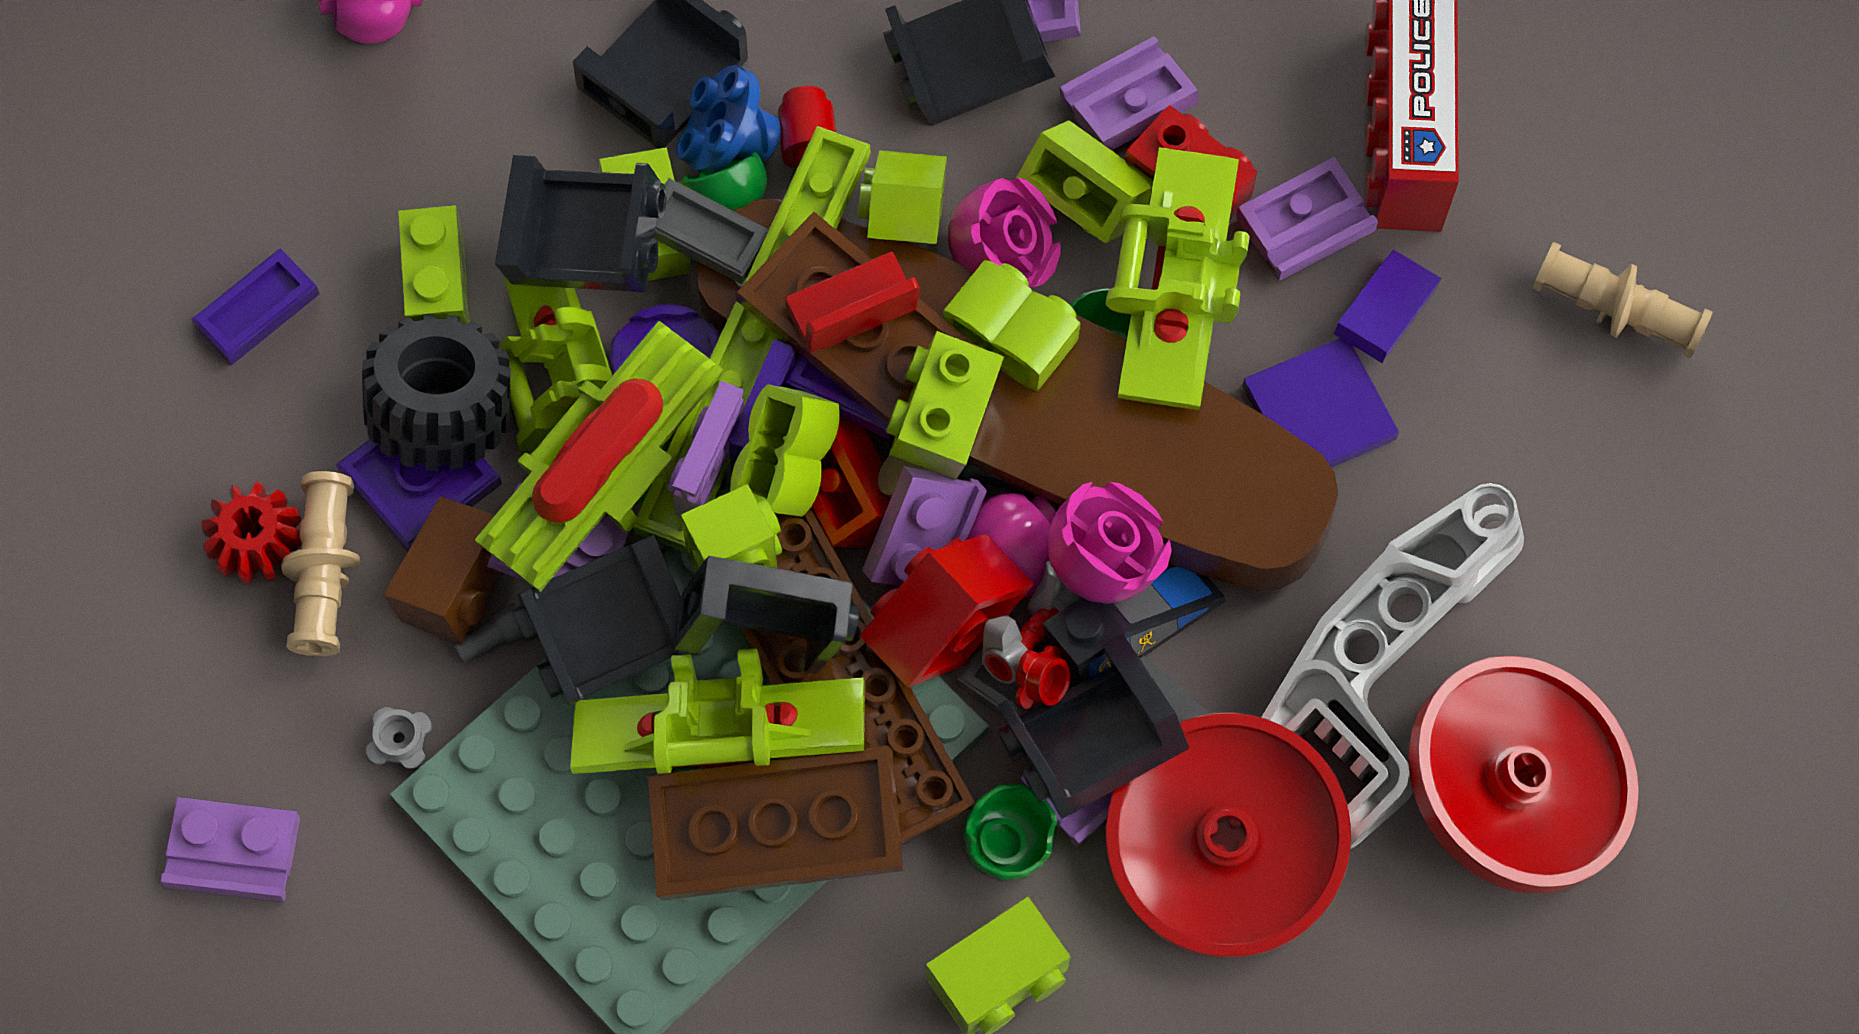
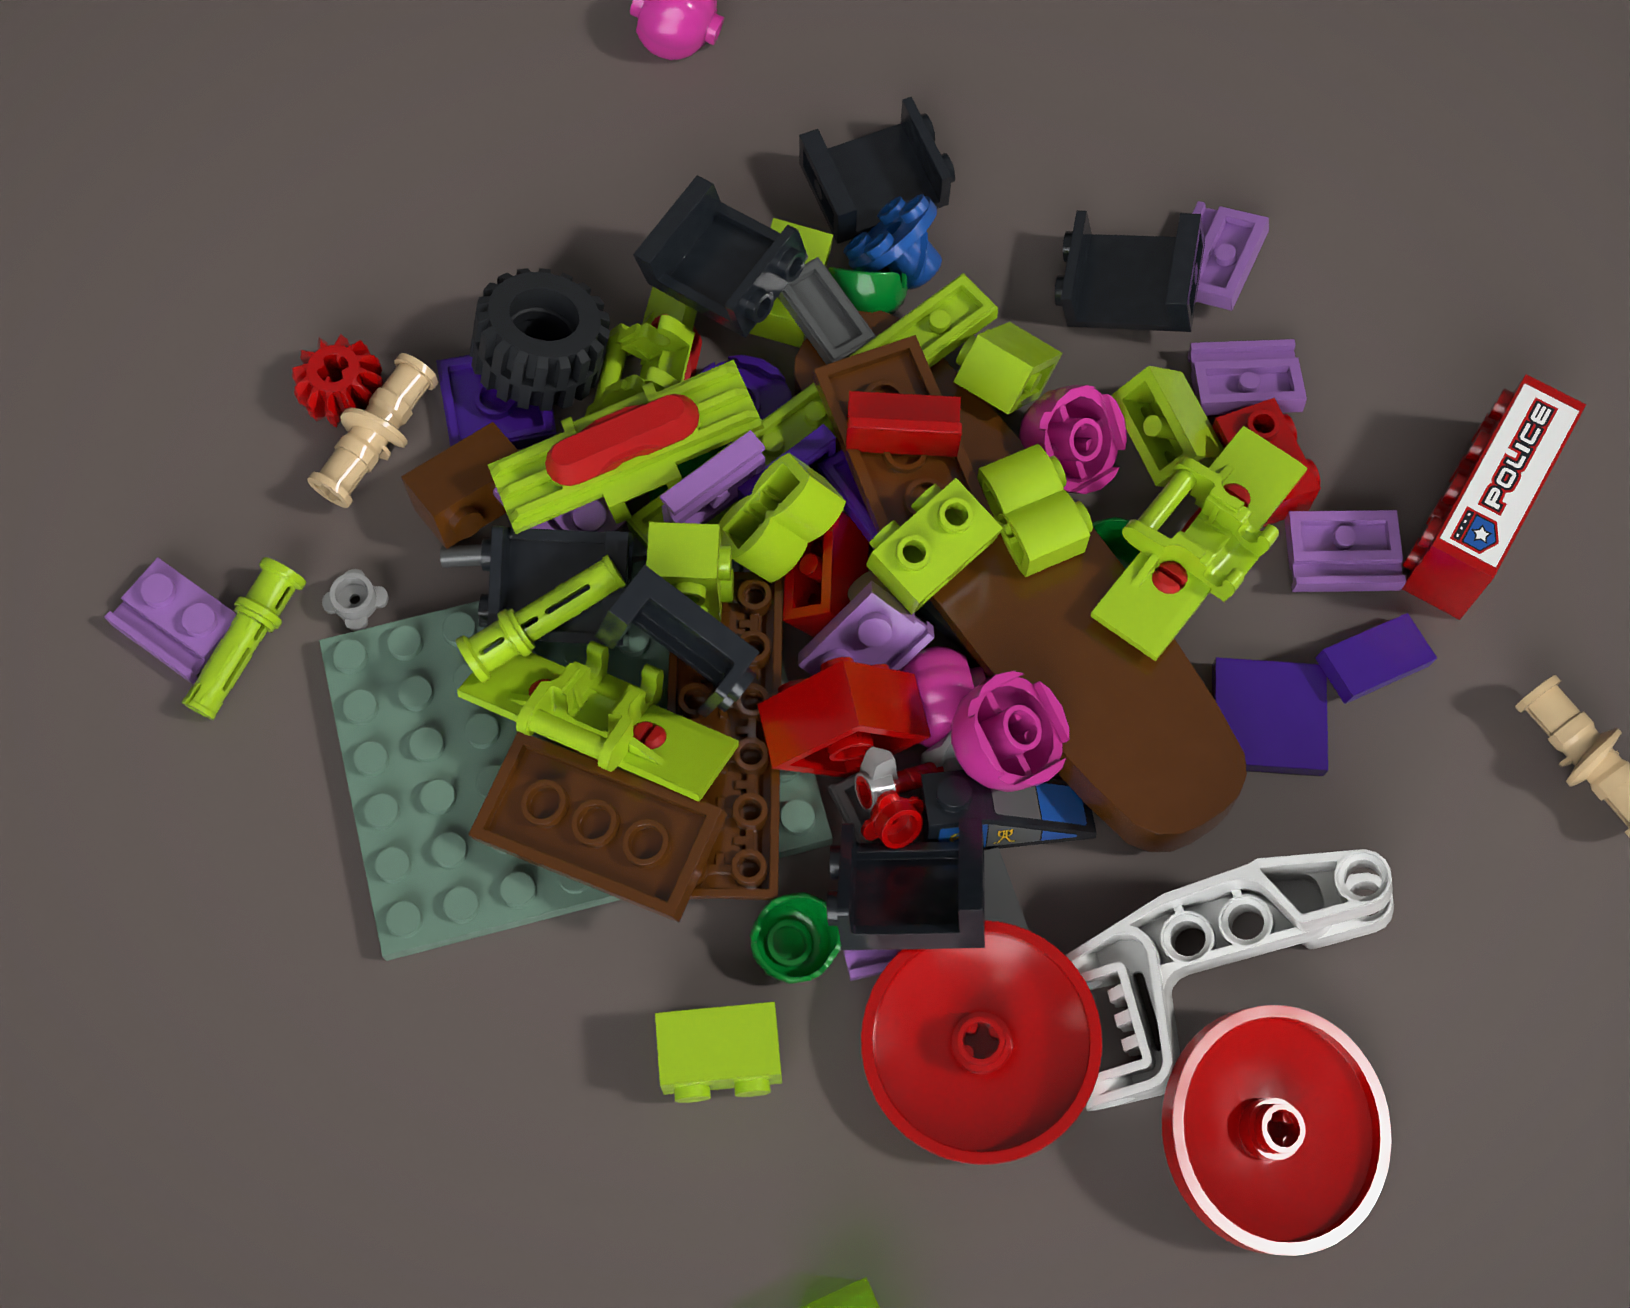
camera: 30 degrees right, 0 degrees up
(255, 306) = (450, 212): dark purple tile -> none
(313, 803) = (254, 617): none -> lime pin
(433, 263) = (600, 241): lime brick -> none
(657, 592) = (518, 639): none -> lime pin
(799, 115) = (967, 258): red brick -> none

